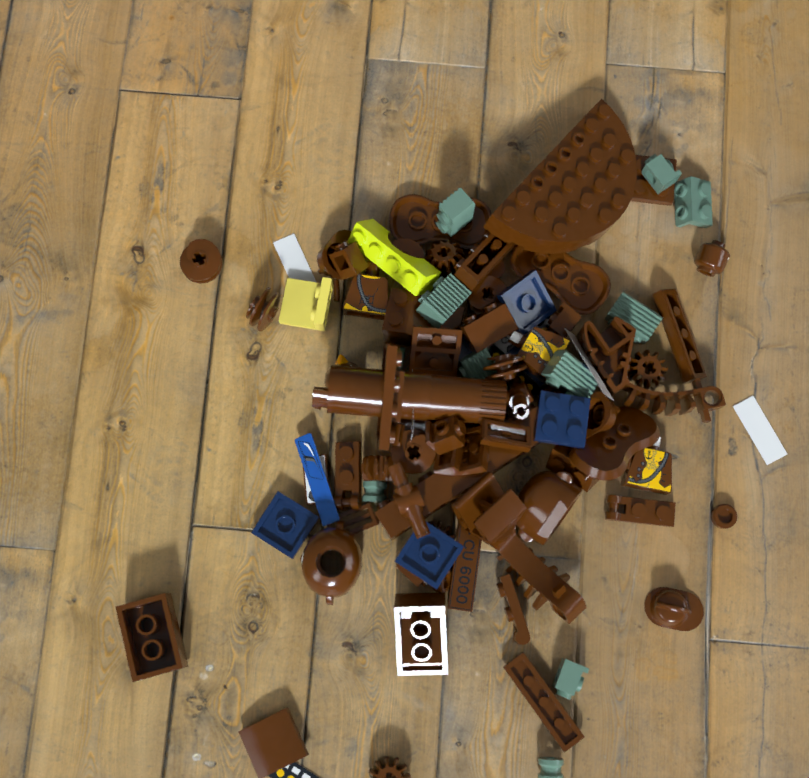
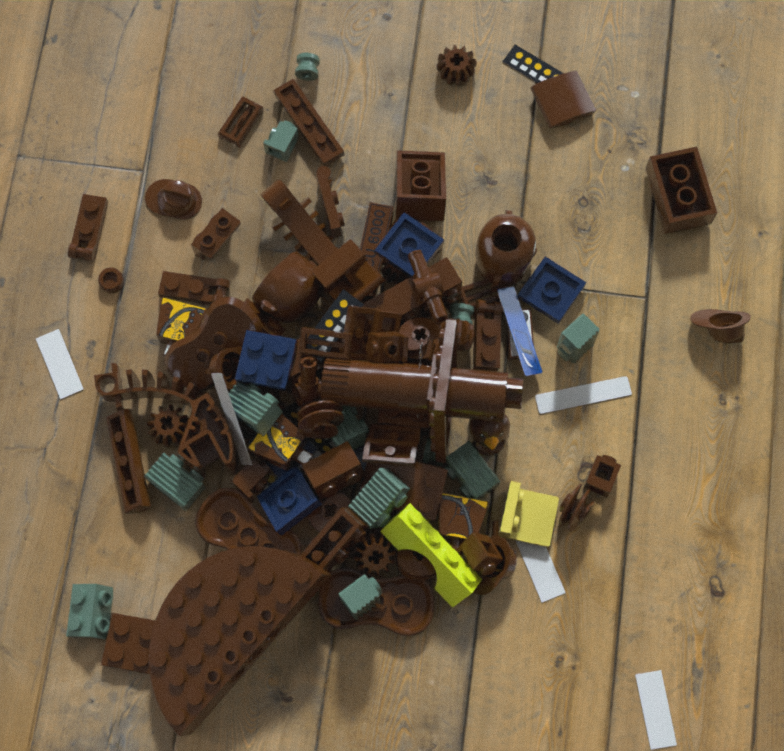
camera: 175 degrees left, 5 degrees down
(118, 497) = (722, 324): none -> reddish brown piece
(196, 150) = (656, 710): none -> white sticker
(199, 250) = (644, 581): reddish brown piece -> none
(235, 335) = (598, 485): none -> reddish brown brick
(255, 423) = (583, 395): none -> white sticker
(260, 468) = (577, 339): none -> sand green brick
(359, 339) = (471, 472): none -> sand green brick
(498, 463) = (334, 320): none -> black sticker
(606, 720) = (247, 127): none -> reddish brown tile
(625, 563) = (215, 234): none -> reddish brown bracket
(660, 173) = (123, 640): sand green brick -> none
(712, 258) = (80, 543): reddish brown head -> none
(756, 571) = (88, 227): none -> reddish brown plate

